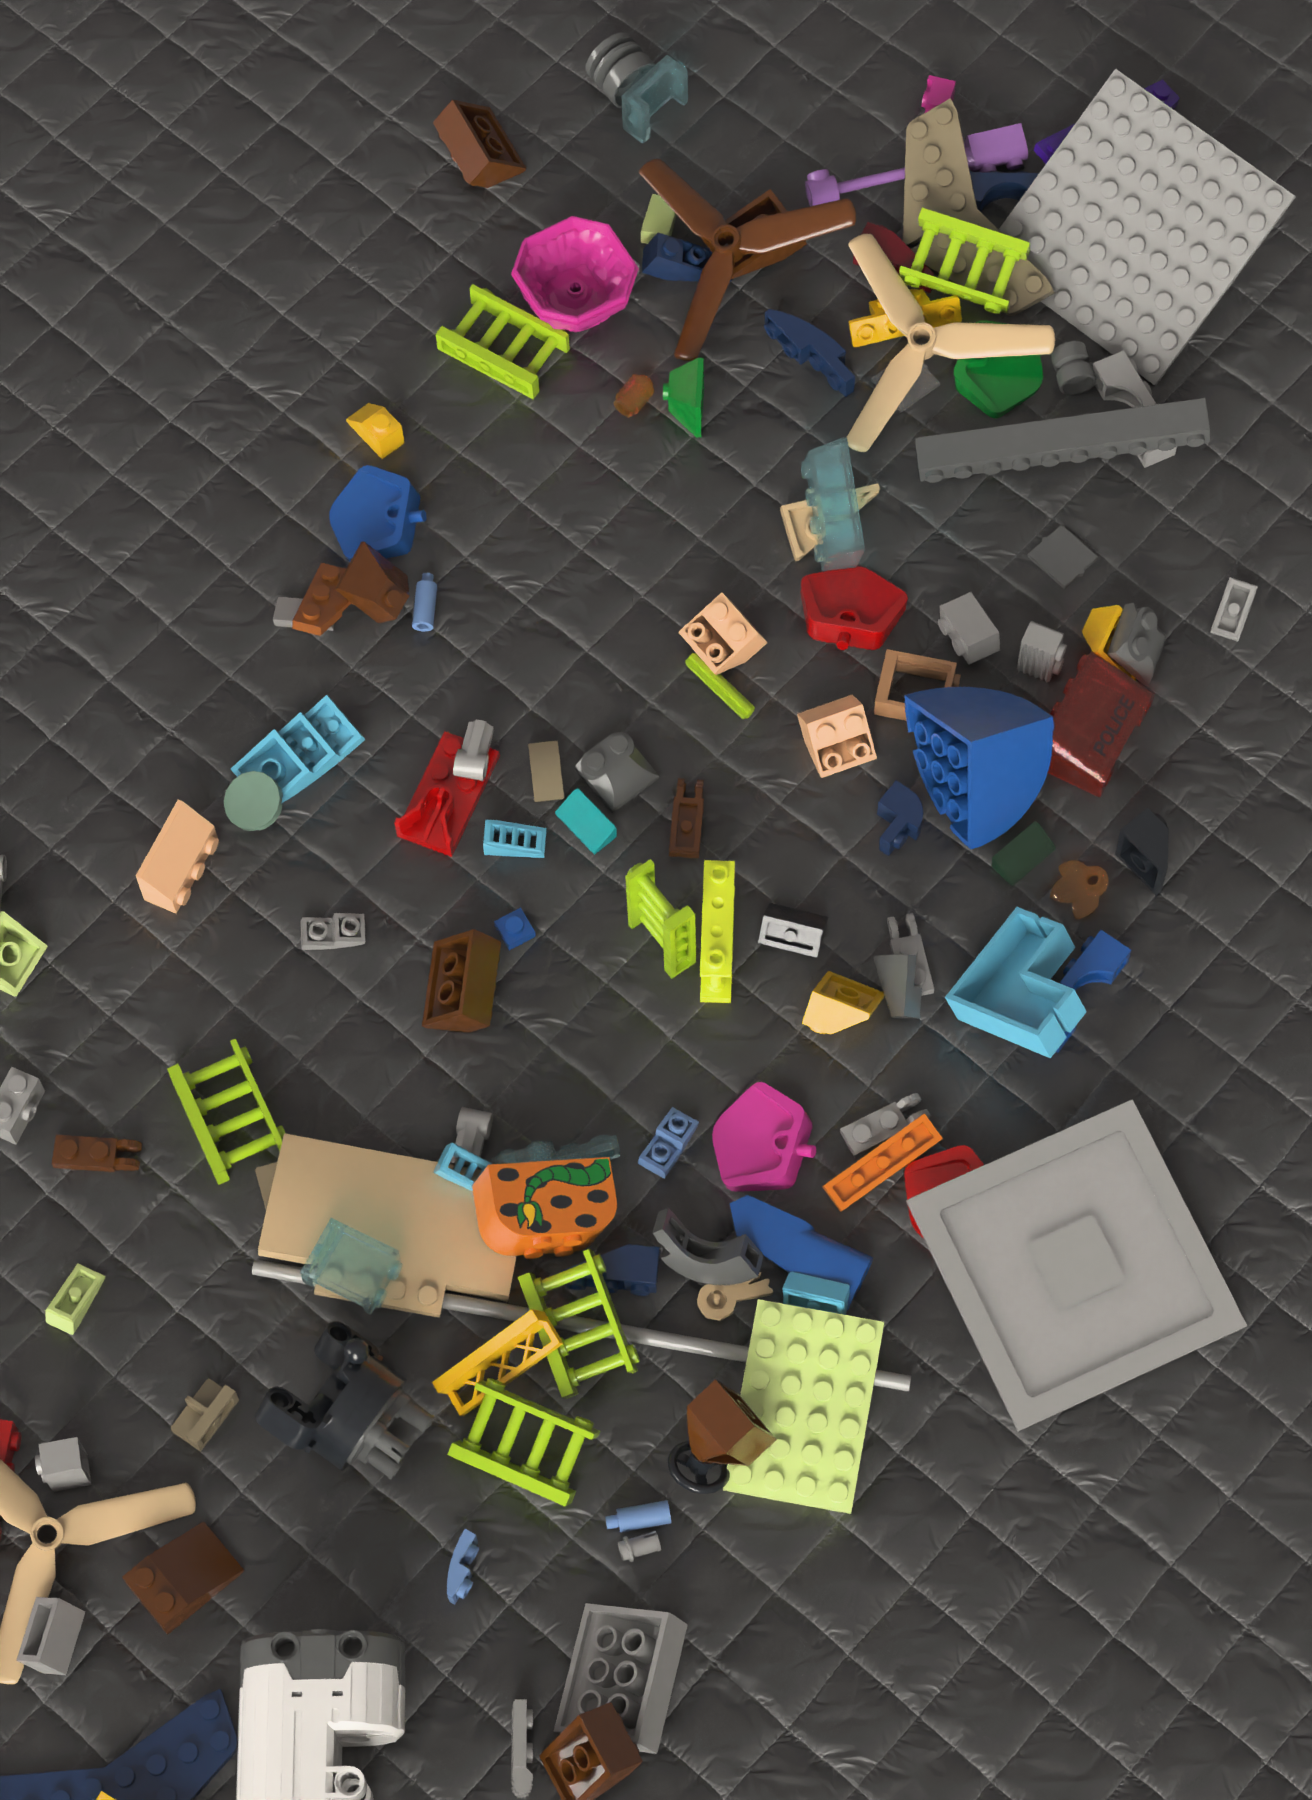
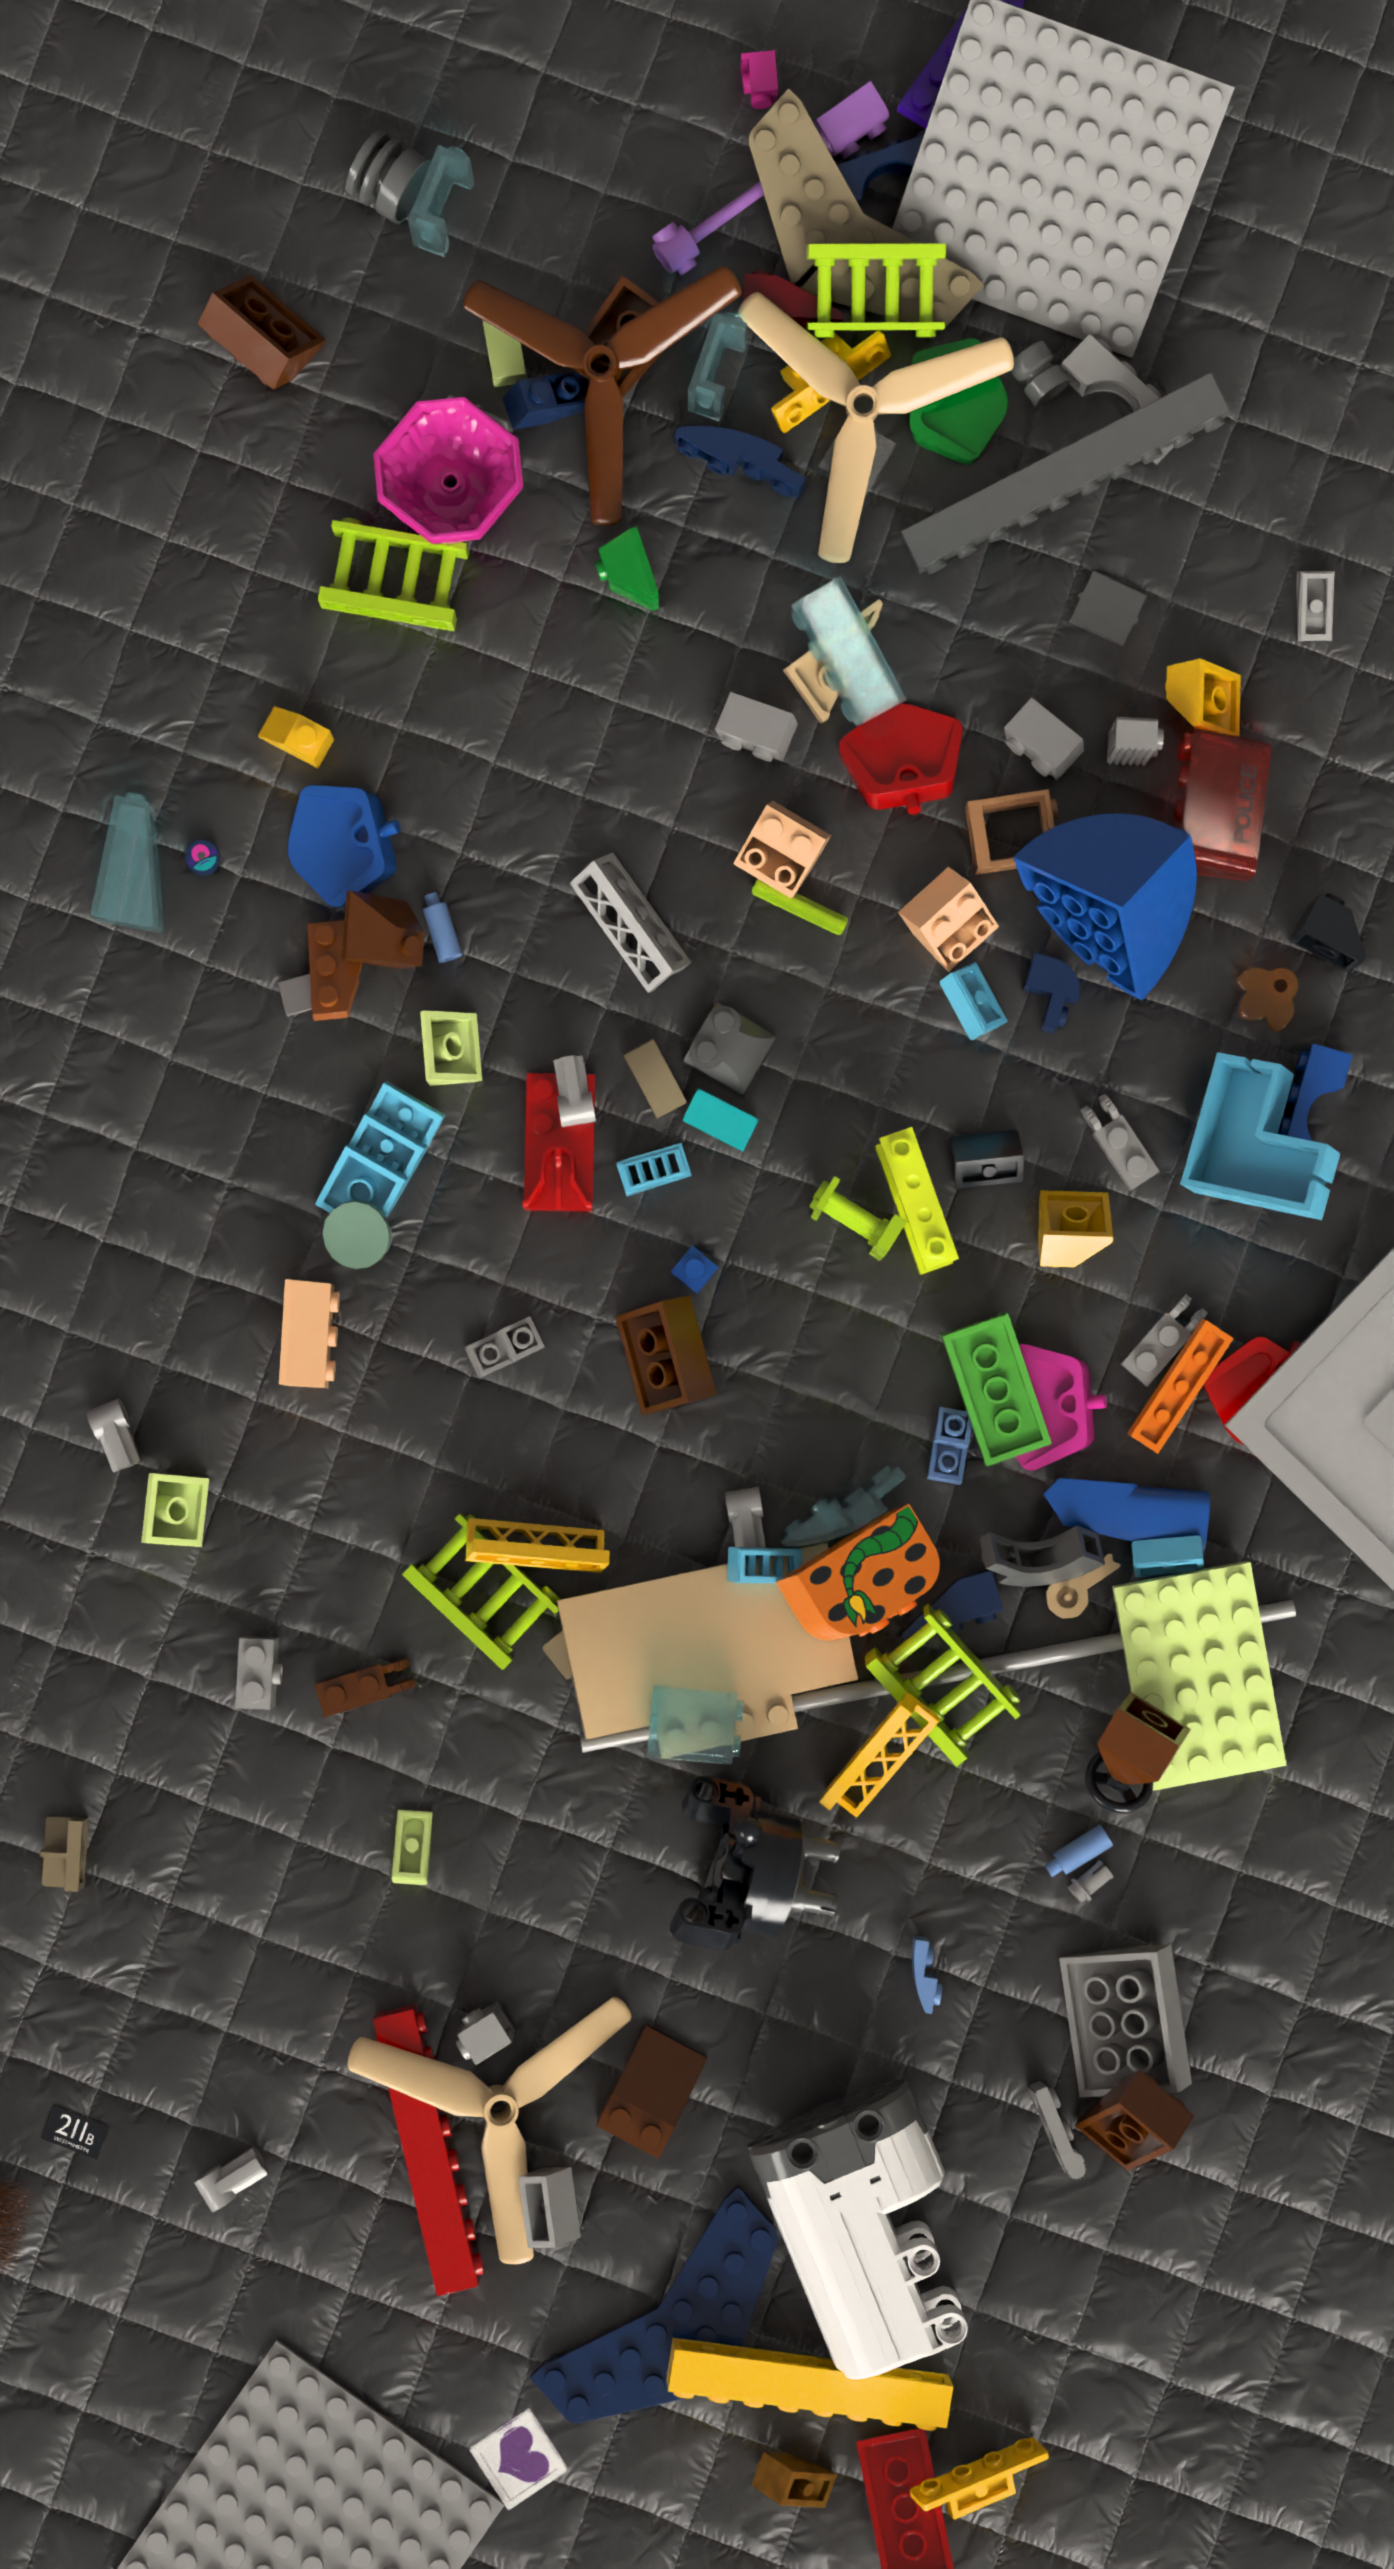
camera: 25 degrees left, 20 degrees up
(201, 476) = (129, 868): none -> clear light blue slope
(204, 1413) = (597, 1916): dark tan panel -> none
(262, 489) = (202, 857): none -> tile
(286, 1088) = (535, 1553): none -> yellow fence
(390, 689) = (451, 1047): none -> yellowish green slope
(499, 1461) = (937, 1859): lime fence -> none
(583, 644) = (635, 917): none -> light grey fence
(634, 395) = (567, 588): clear orange brick -> none
(687, 821) = (828, 1078): reddish brown hinge -> none
(724, 1104) = (996, 1389): none -> bright green plate
(740, 541) = (756, 727): none -> light grey brick
(828, 258) = (704, 395): none -> clear light blue panel
(832, 806) = (973, 1001): none -> medium azure slope
(897, 981) = (1124, 1183): dark grey slope -> none
(1023, 853) = (1195, 980): clear green slope -> none
(1137, 642) = (1231, 690): dark grey slope -> none

